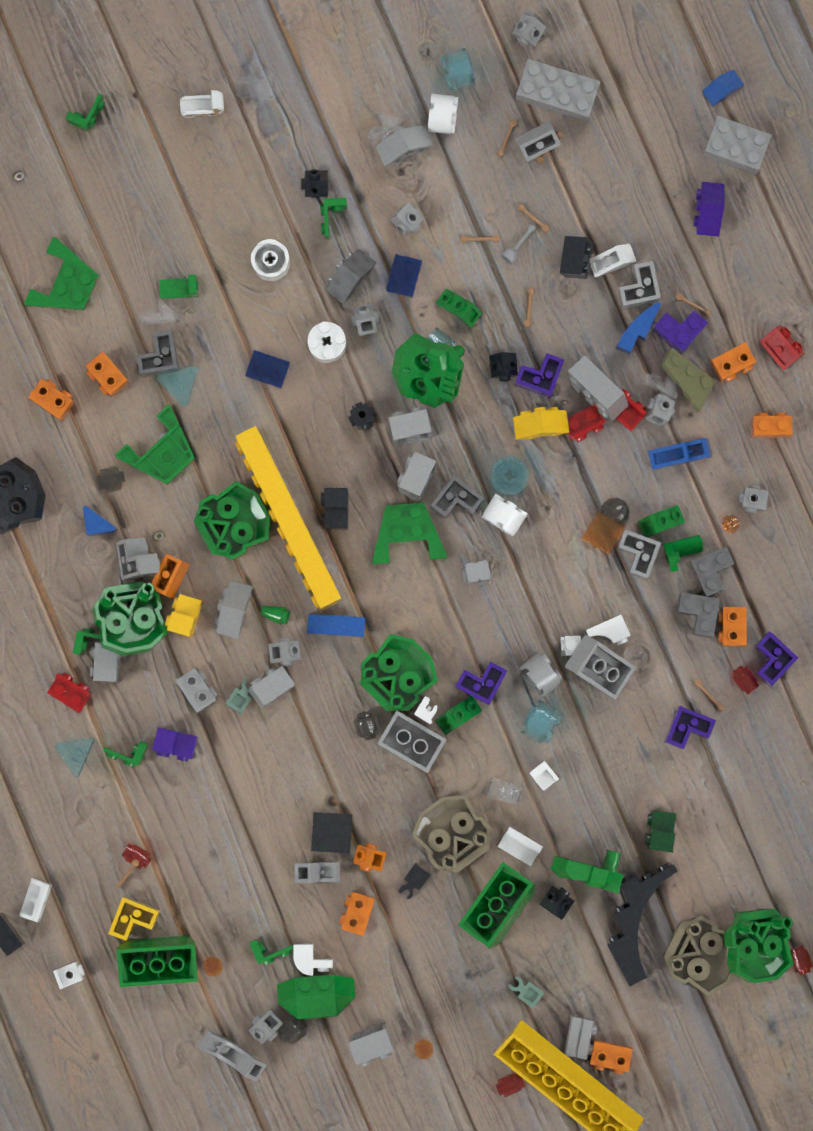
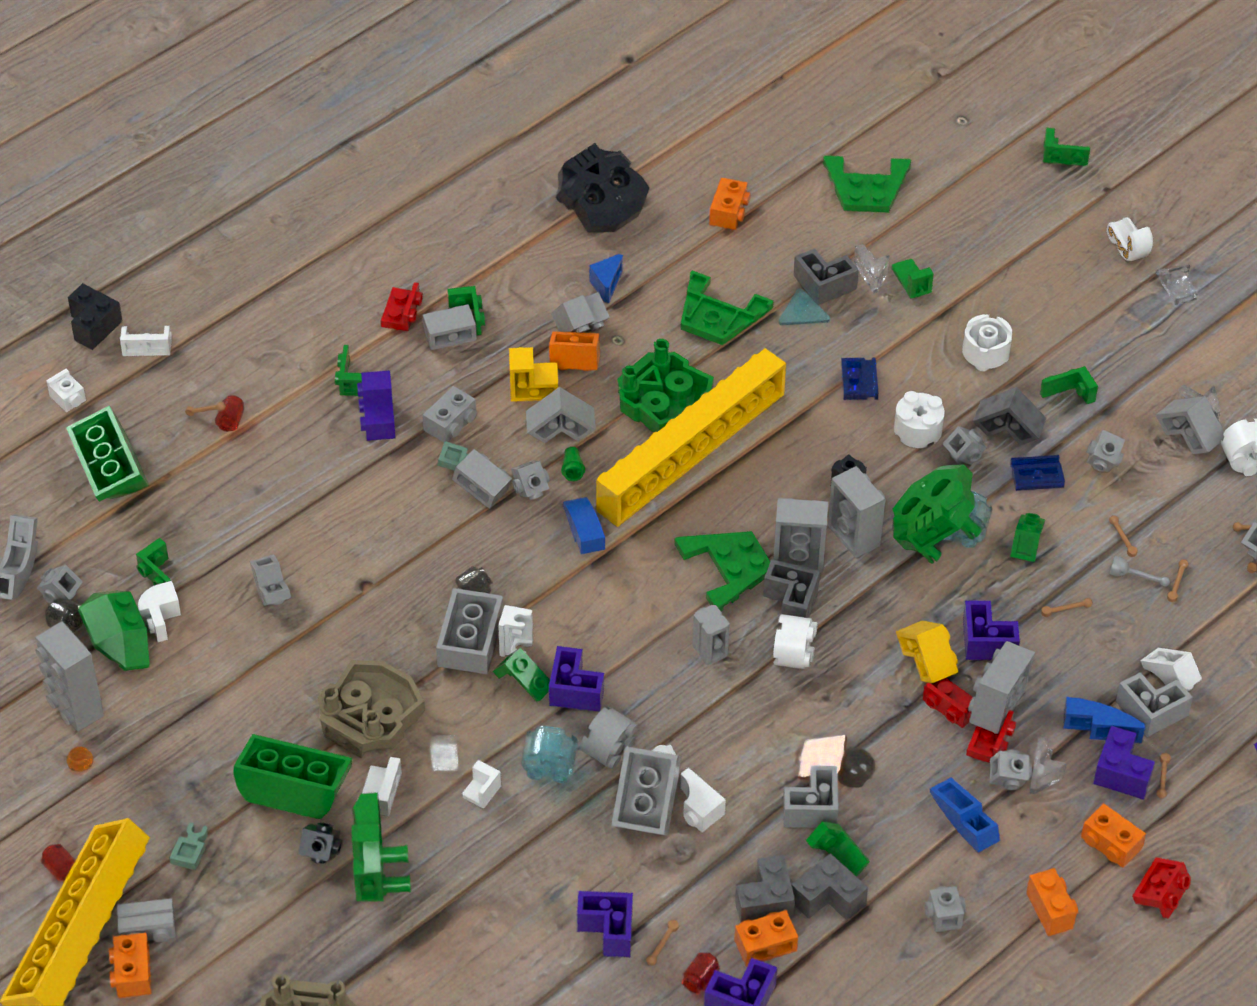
camera: 65 degrees right, 35 degrees down
(75, 754) = (330, 326): clear light blue piece -> none
(106, 374) = (780, 241): orange brick -> none
(110, 479) = (662, 274): clear smoke head -> none
(131, 913) = (154, 421): yellow brick -> none
(132, 634) = (520, 318): green brick -> none
(212, 966) = (119, 521): clear orange plate -> none
(315, 183) = (1099, 358): black brick -> none
(331, 832) = (325, 587): black brick -> none
(336, 508) = (729, 481): black brick -> none
(357, 913) = (233, 641): orange brick -> none
(369, 857) = (305, 638): orange brick -> none
(409, 662) = (536, 588): green brick -> none
(416, 879) = (297, 692): black plate -> none
(503, 366) = (980, 589): black brick -> none
(518, 470) = (846, 637): clear light blue brick -> none
(576, 257) = (1153, 628): black brick -> none
(637, 894) = (325, 931): black arch -> none
(661, 521) = (870, 817): green bracket -> none
(661, 831) = (454, 933): dark green brick -> none
(690, 378) = (1066, 788): olive wing -> none
(730, 523) = (900, 895): clear orange plate -> none

